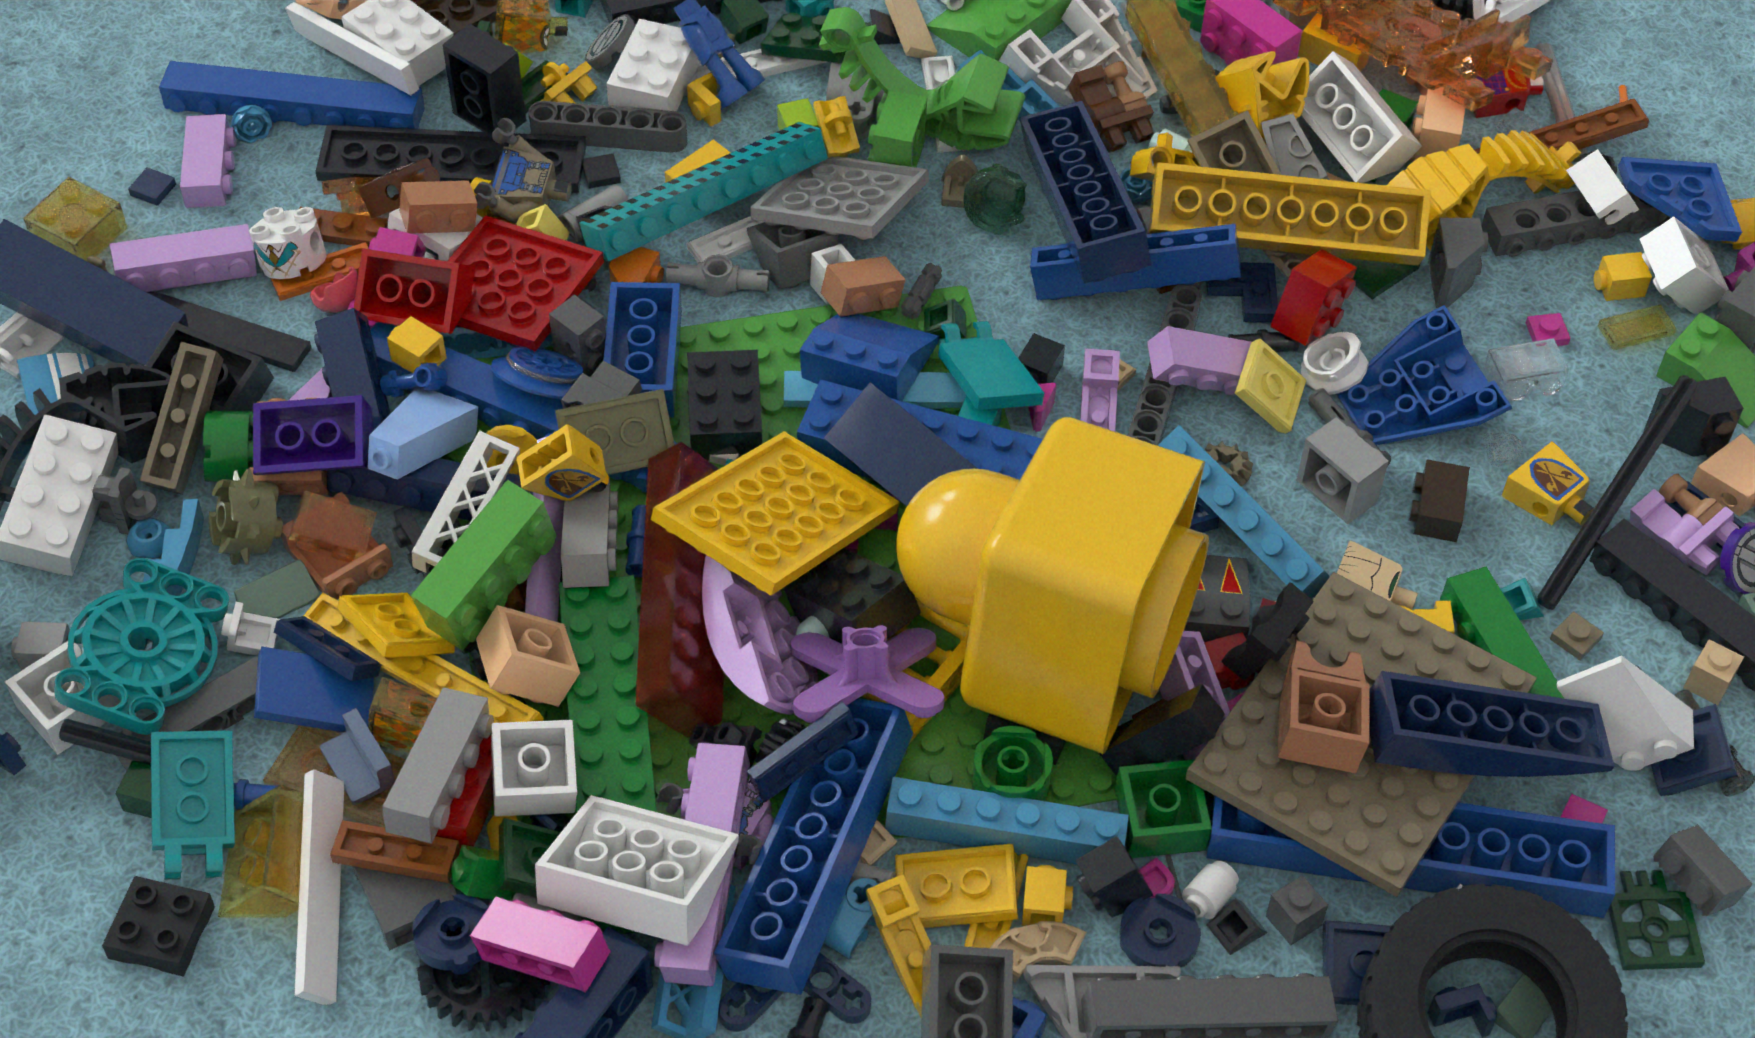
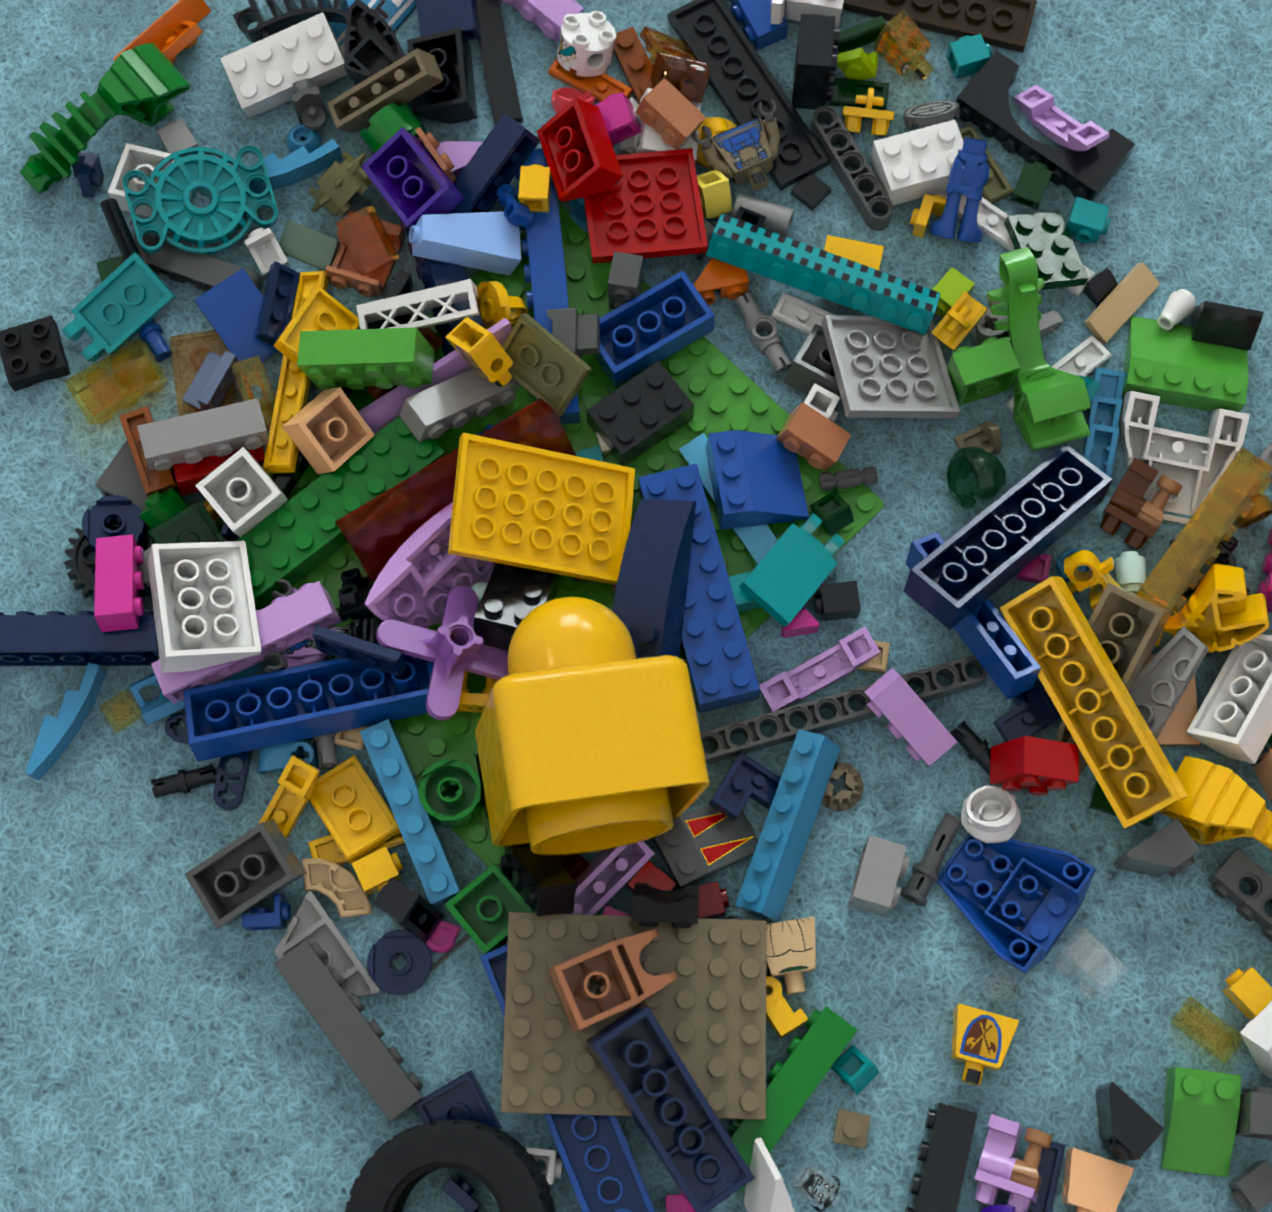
camera: 60 degrees right, 20 degrees up
(319, 890) = (106, 424): white tile -> none
(537, 371) = (573, 280): blue piece -> none
(1211, 889) = (453, 978): white brick -> none
(1236, 927) = (440, 1012): black slope -> none
(1270, 386) = (930, 779): light yellow tile -> none
(1296, 910) = (469, 1046): dark grey brick -> none
(1440, 500) = (909, 962): dark brown brick -> none
(1548, 327) = (1151, 960): dark pink plate -> none
(1616, 492) = (998, 1096): black axle -> none

